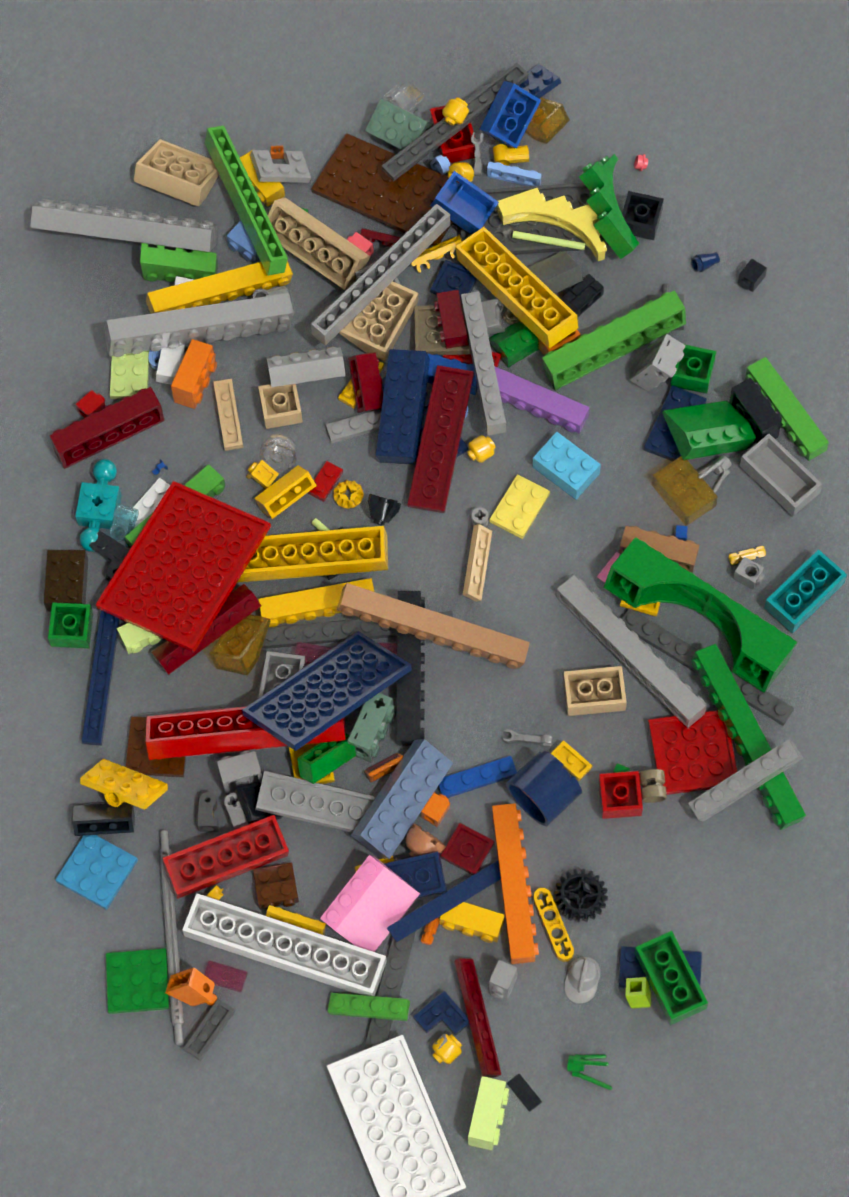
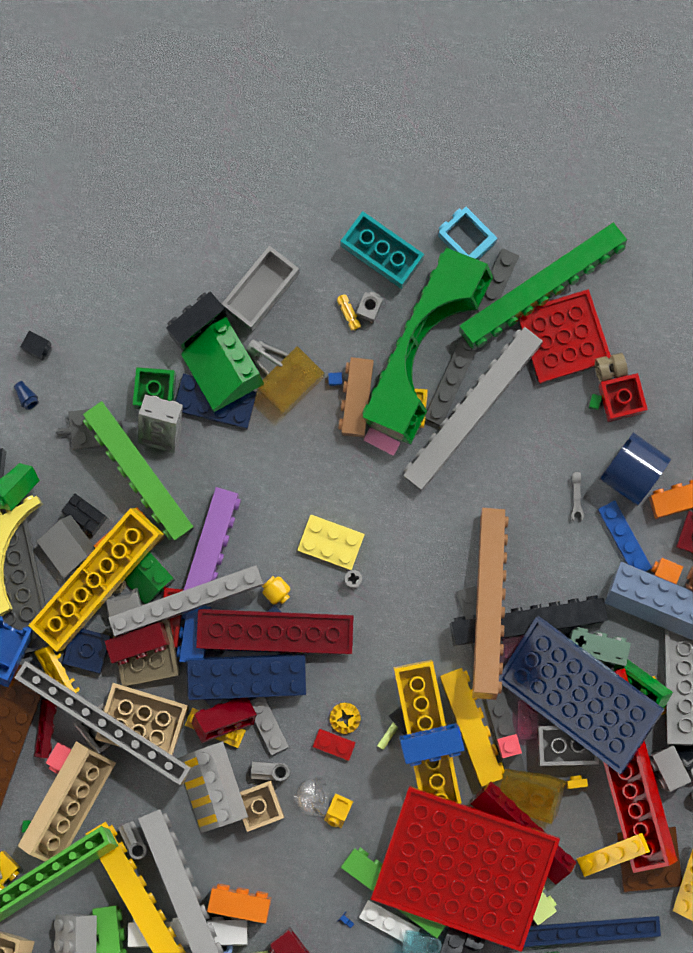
camera: 100 degrees left, 15 degrees up
(167, 703) = (613, 854): none -> yellow plate
(228, 414) = (275, 859): tan plate -> none
(239, 241) = (70, 888): medium blue brick -> none
(244, 689) = (576, 782): none -> yellow plate
(285, 492) = (357, 782): yellow brick -> none
(291, 627) = (509, 746): none -> coral brick
(305, 543) = (432, 744): none -> blue brick
(310, 421) = (267, 771): none -> light grey piece
(382, 509) = (359, 678): black brick -> none
(383, 767) = (630, 630): orange slope -> none
(477, 563) = (401, 574): tan plate -> none
(548, 240) = (26, 558): yellowish green bar -> none
(566, 465) = (281, 501): medium azure brick -> none
(572, 760) = (593, 450): yellow plate -> none
(594, 691) = (521, 437): tan brick -> none
(745, 780) = (595, 279): light grey brick -> none
(795, 419) = (184, 292): bright green brick -> none
(795, 687) = (489, 242): none -> medium azure window

